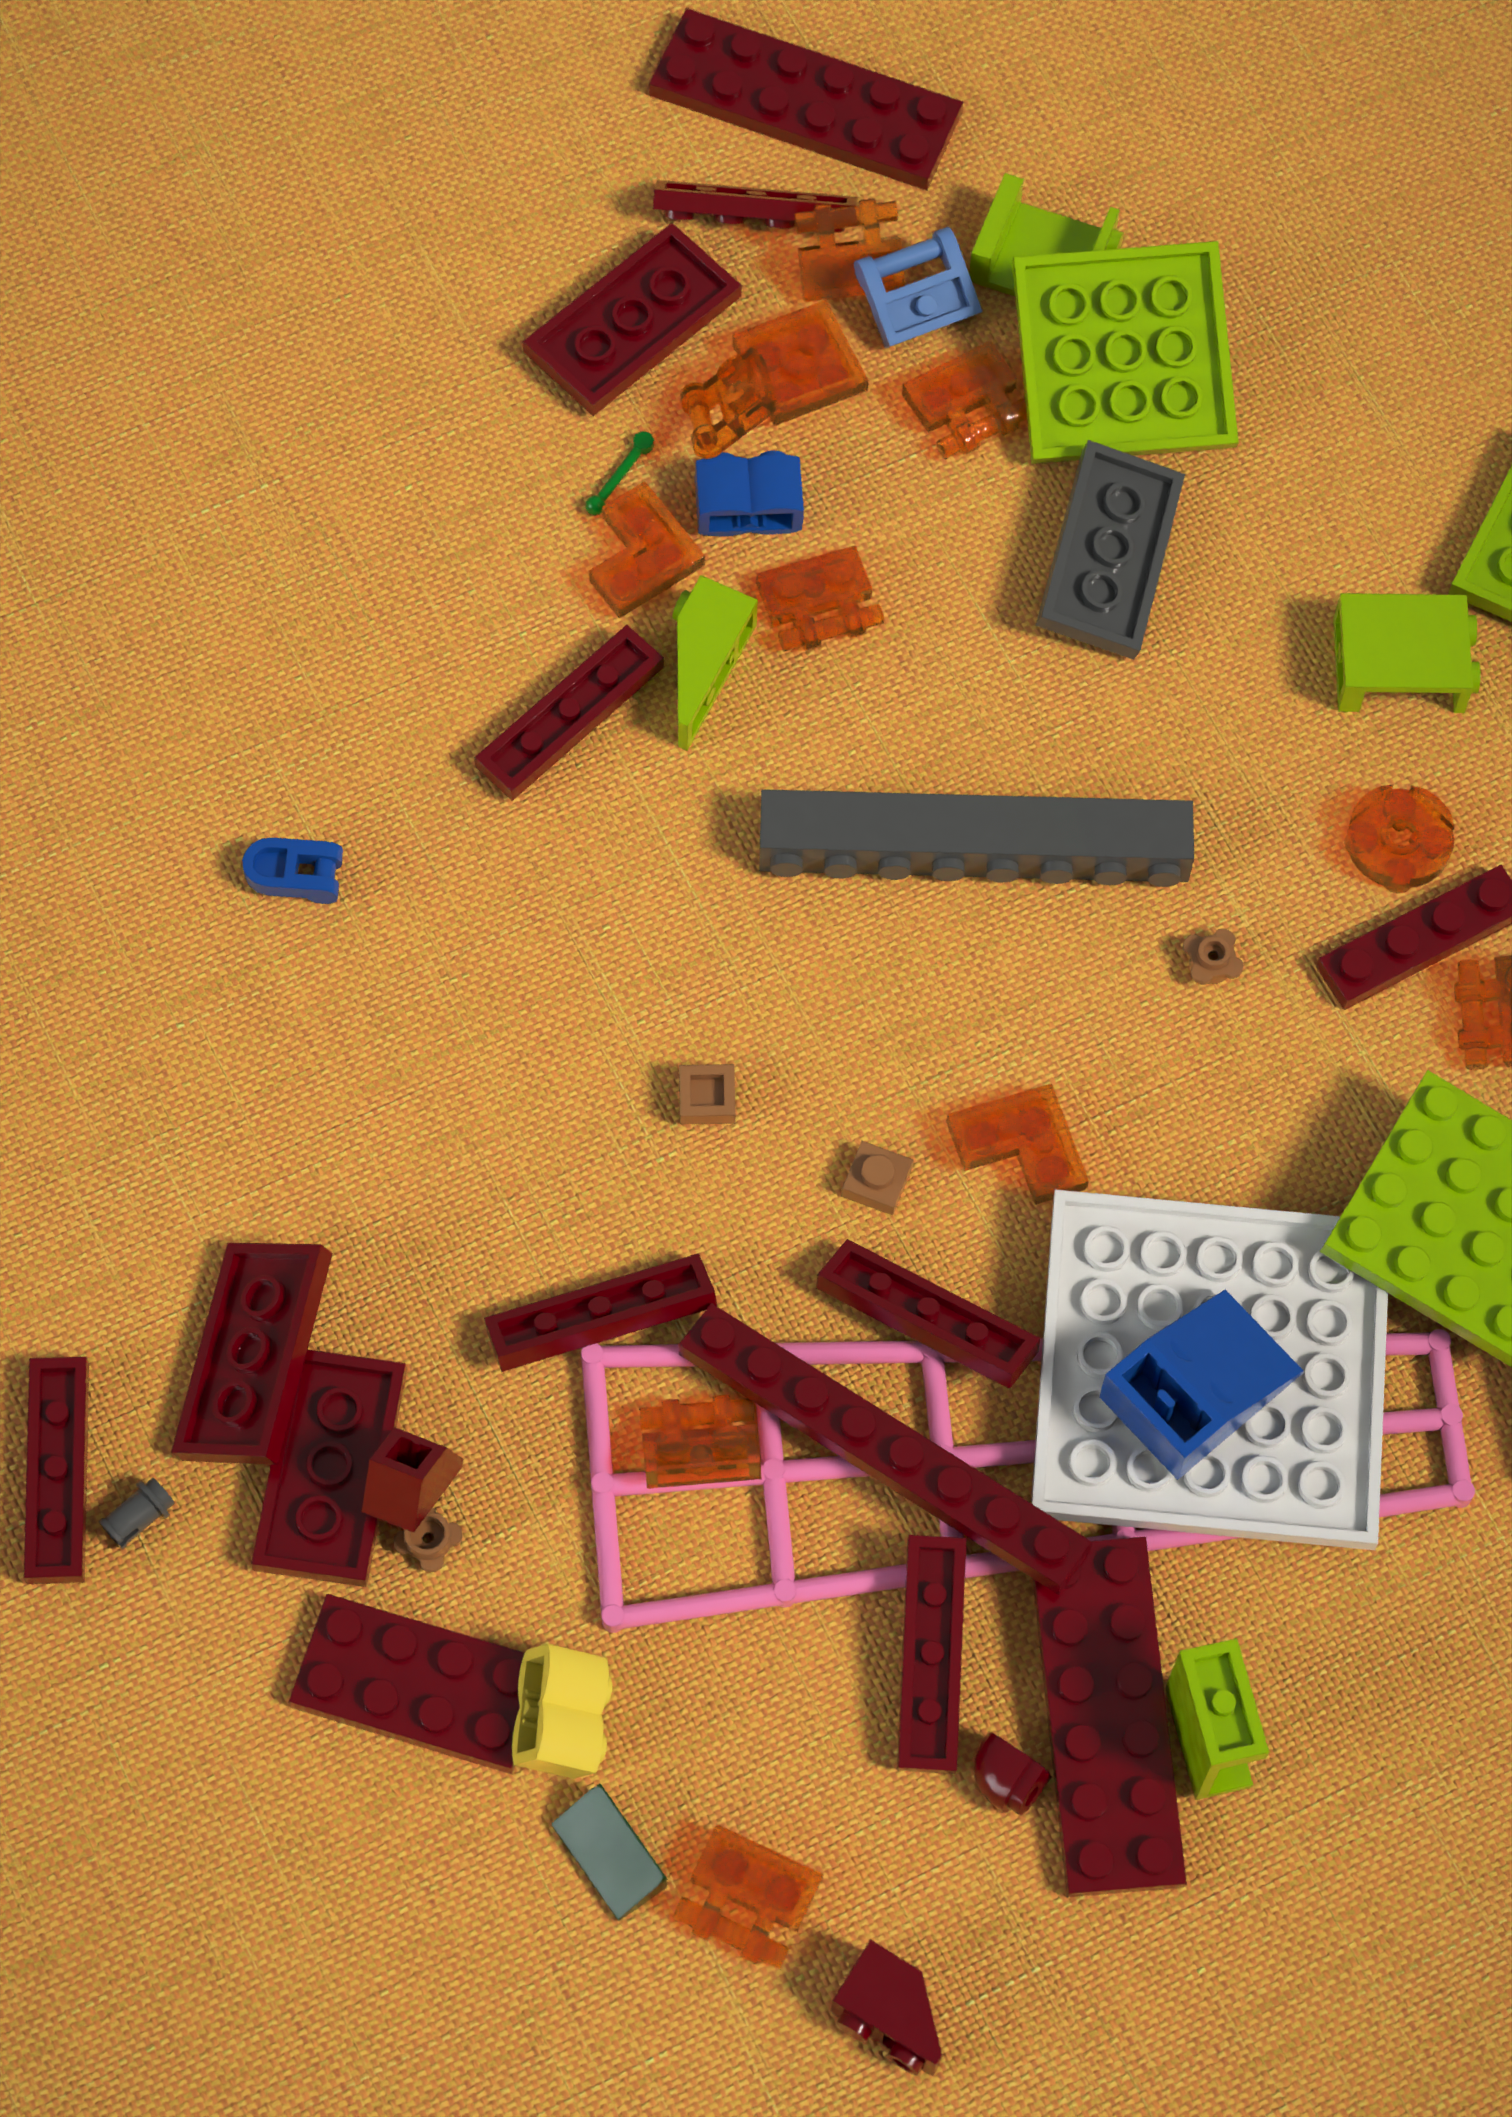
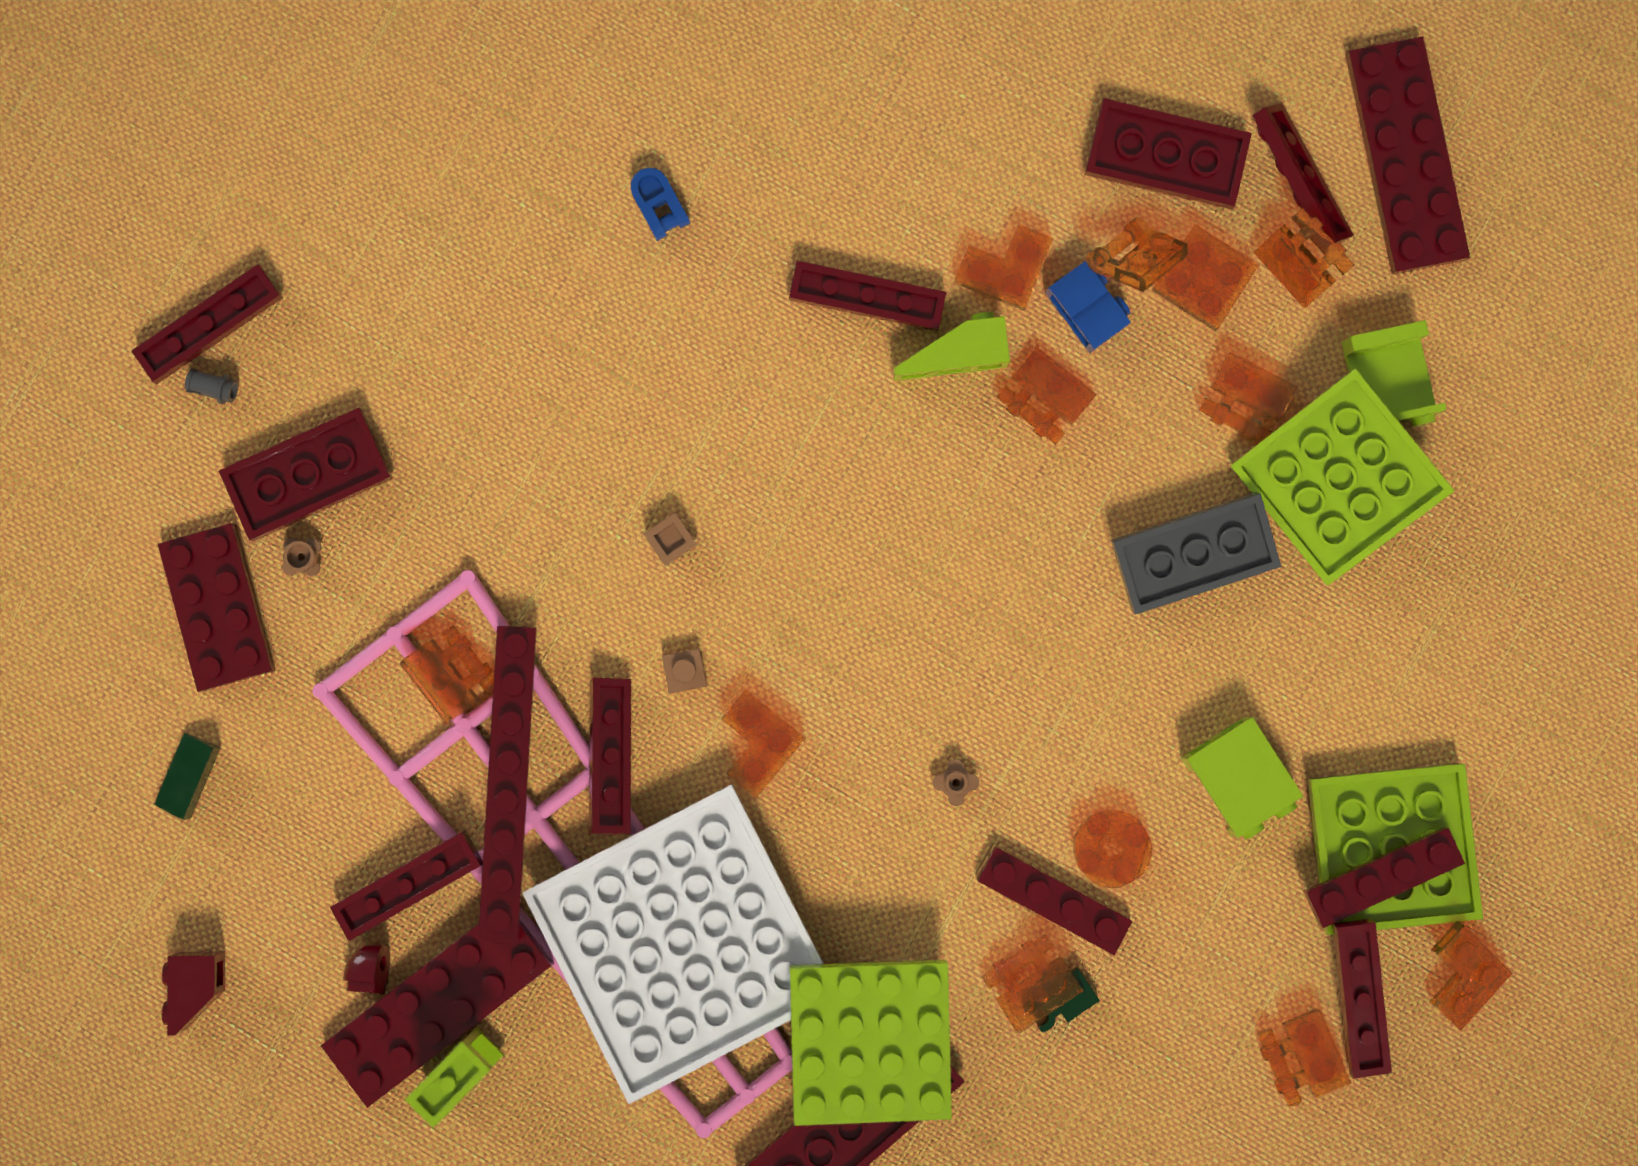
camera: 60 degrees right, 20 degrees up
(252, 1353) = (338, 387): dark red plate -> none
(407, 1478) = (318, 527): dark red slope -> none
(561, 1711) = (240, 700): light yellow brick -> none
(600, 1312) = (493, 566): dark red plate -> none
(642, 444) = (1086, 217): green hinge -> none
(757, 1880) = (219, 868): clear orange plate -> none
(922, 304) = (1298, 327): medium blue plate -> none
(976, 837) = (941, 592): dark grey brick -> none
(1197, 1382) = (655, 947): blue slope -> none

